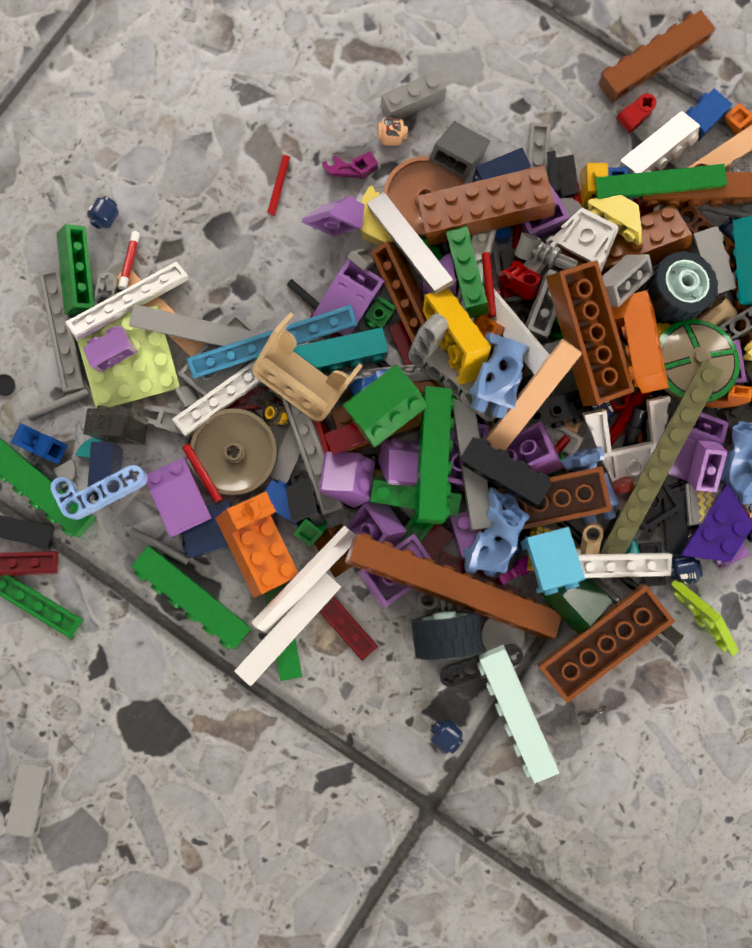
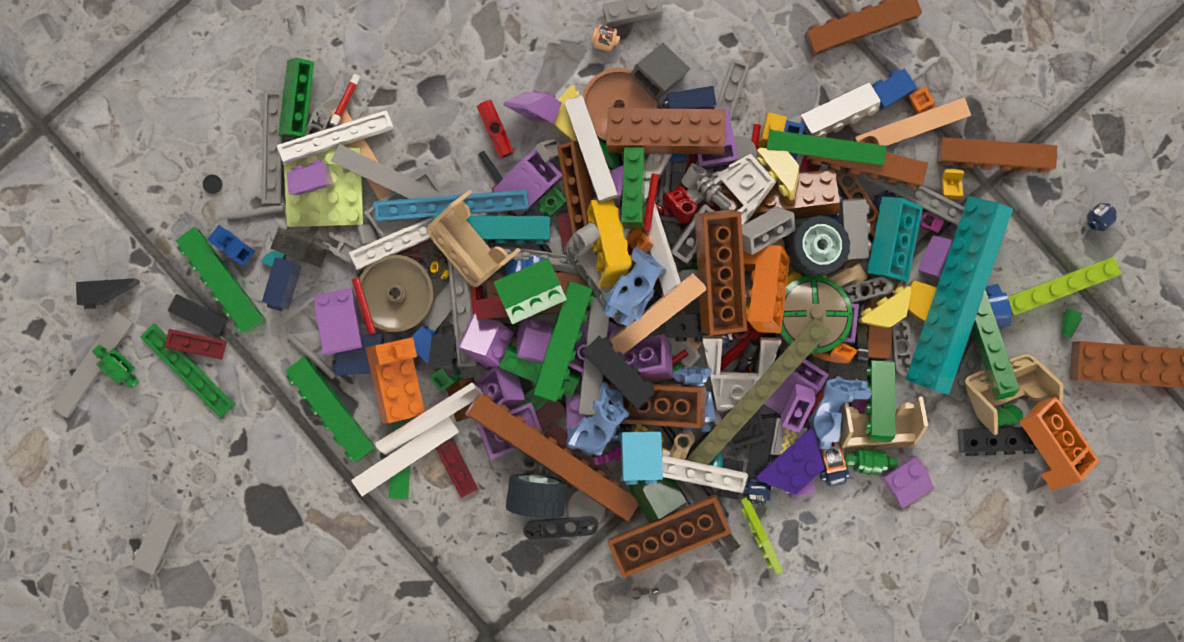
camera: 20 degrees right, 5 degrees up
(67, 471) = (248, 275): light grey tile -> none
(102, 212) = (332, 51): dark blue head -> none
(106, 497) = (275, 302): light blue beam -> none
(278, 185) = (493, 61): red bar -> none
(307, 262) = (490, 118): none -> red piece
(351, 170) = (559, 64): magenta piece -> none
(446, 736) = (516, 579): dark blue head -> none
(518, 714) = (580, 576): light aqua brick -> none
(563, 174) = (747, 114): black panel -> none
(622, 485) = (722, 405): clear red tile -> none
(634, 114) = (827, 74): red piece -> none

